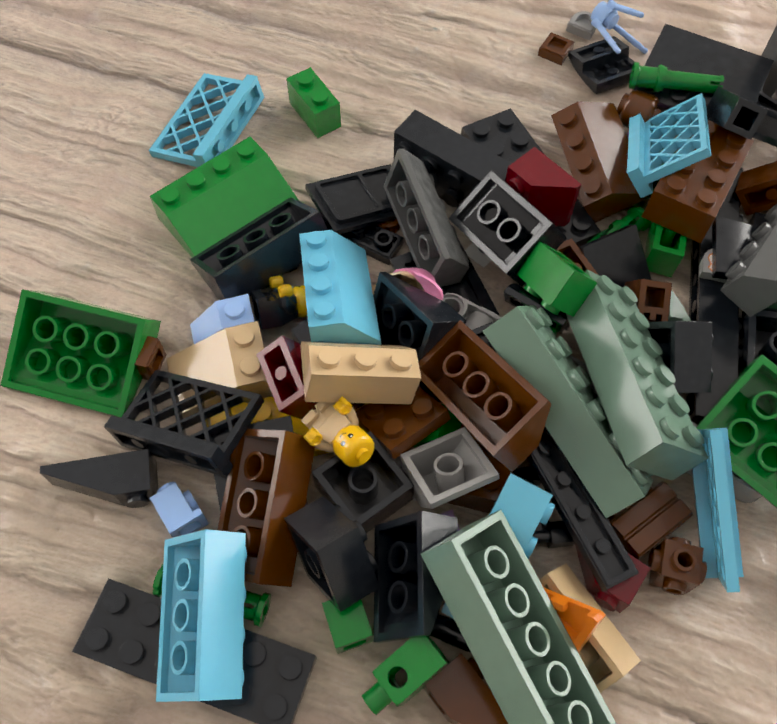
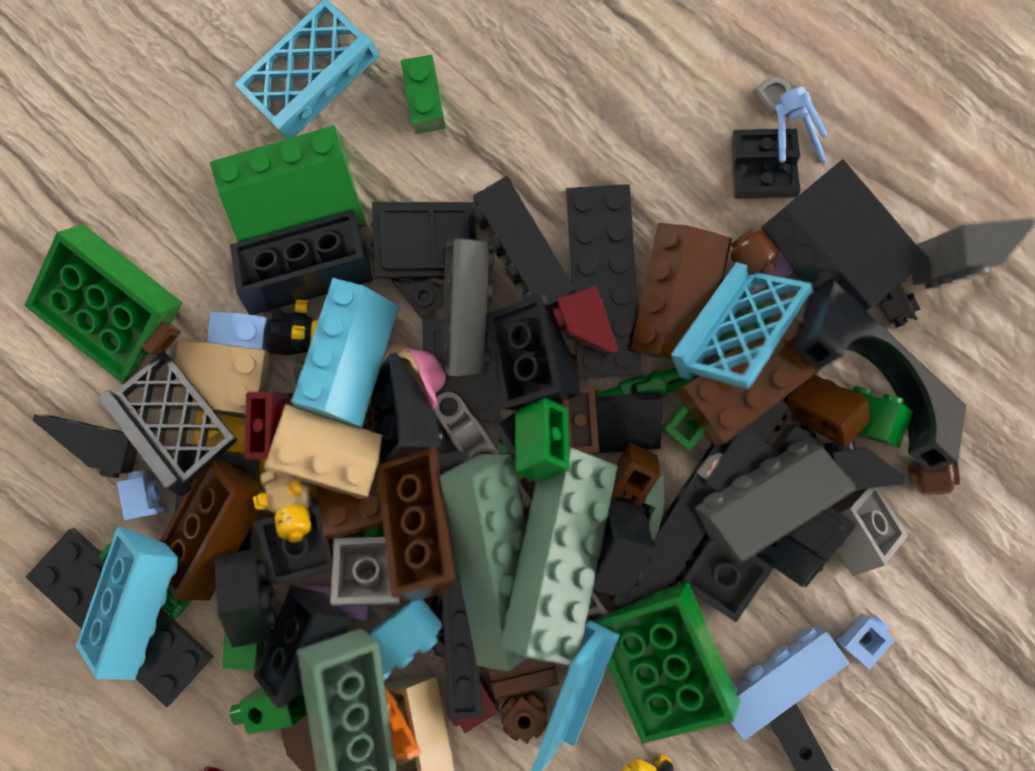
camera: 25 degrees right, 25 degrees up
(556, 48) = (724, 117): reddish brown tile -> none
(662, 78) = (787, 237): green pin -> none

